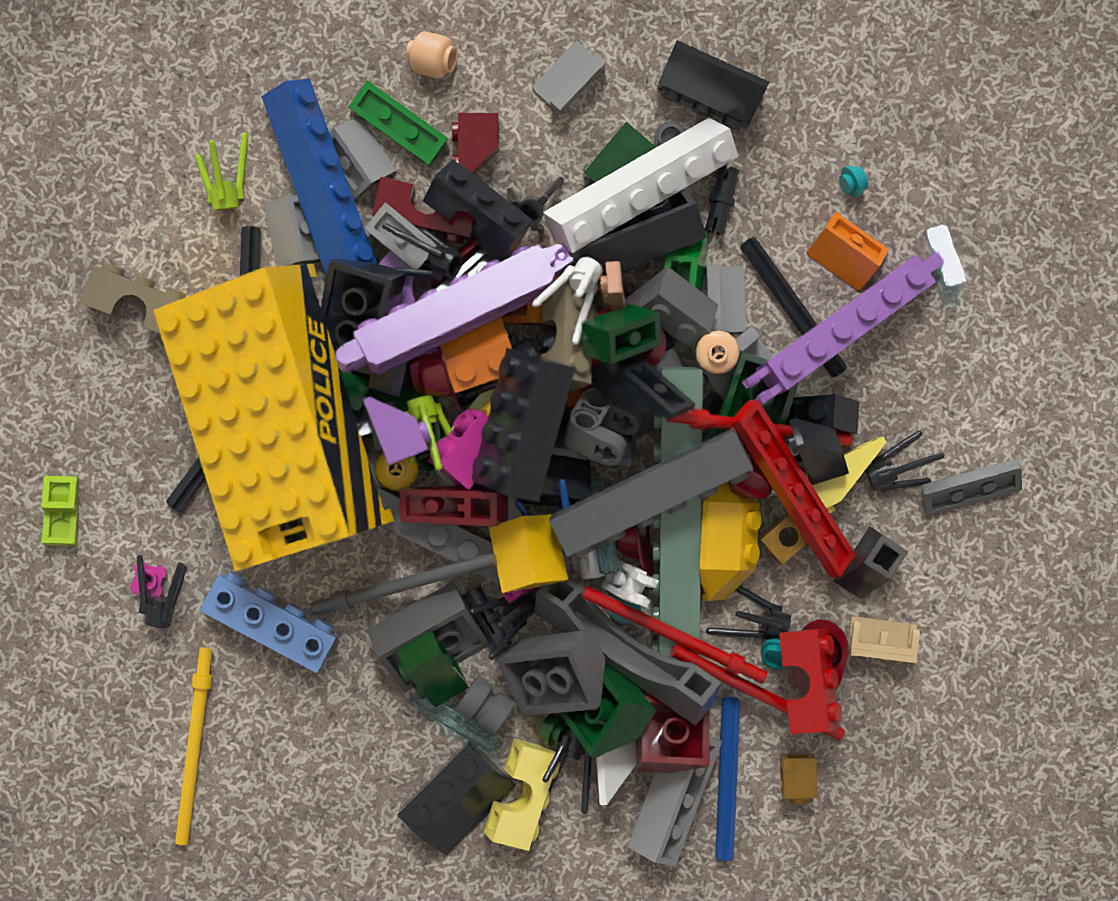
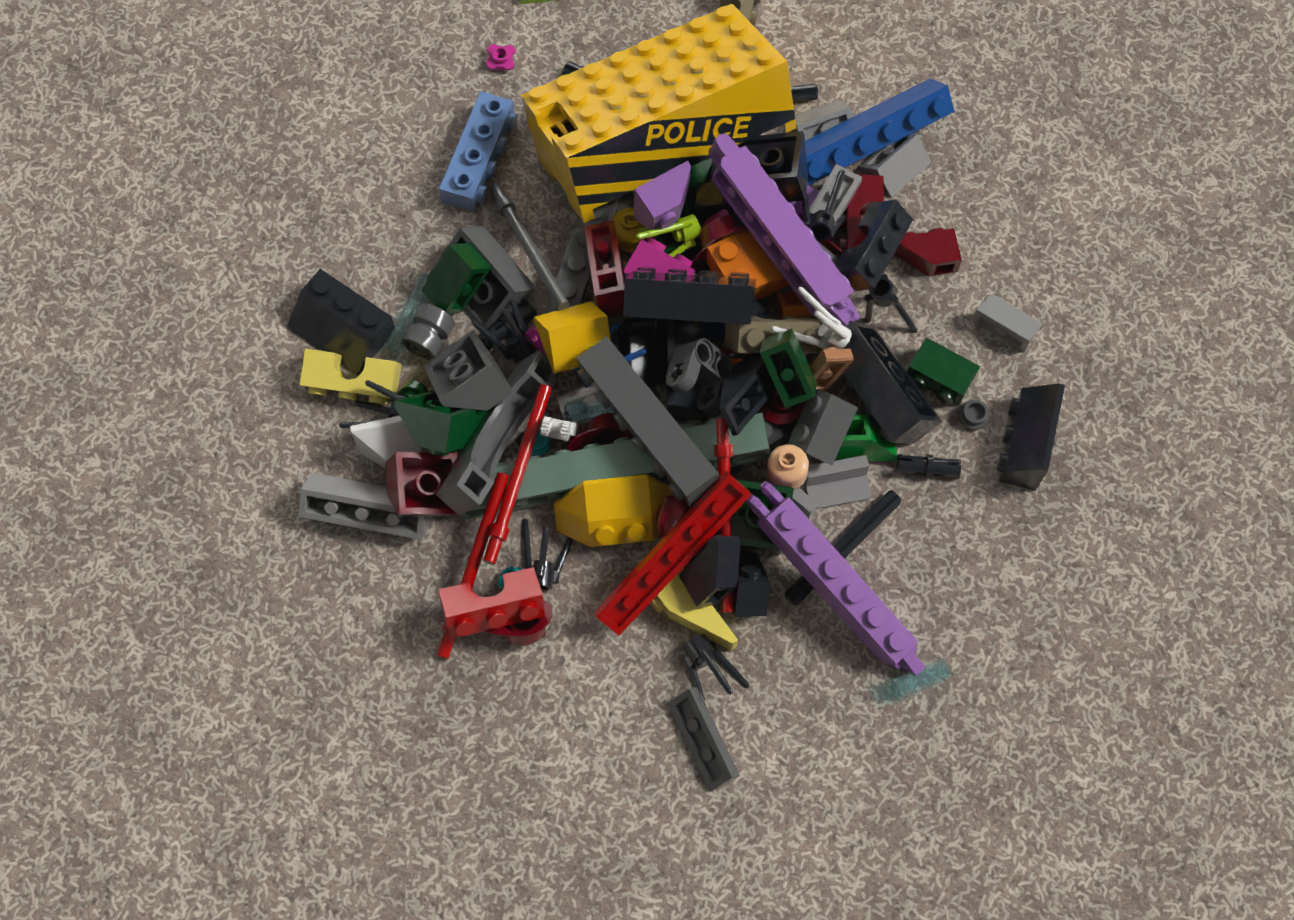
camera: 80 degrees right, 20 degrees down
(160, 609) = (476, 66): black plant -> none
(201, 683) = (417, 109): yellow bar -> none
(222, 193) = (840, 65): lime plant -> none
(398, 123) = (933, 188): green plate -> none
(432, 55) = (998, 205): light nougat head -> none
(641, 184) = (927, 382): white brick -> none
(727, 778) = (386, 558): blue axle -> none
(772, 544) = (617, 558): pearl gold brick -> none
(798, 777) = (396, 619): pearl gold brick -> none
(847, 251) = (908, 585): orange panel -> none
(853, 181) = (973, 580): teal plate -> none
(873, 565) = (612, 651): black slope -> none
(883, 639) = (540, 678): tan hinge -> none

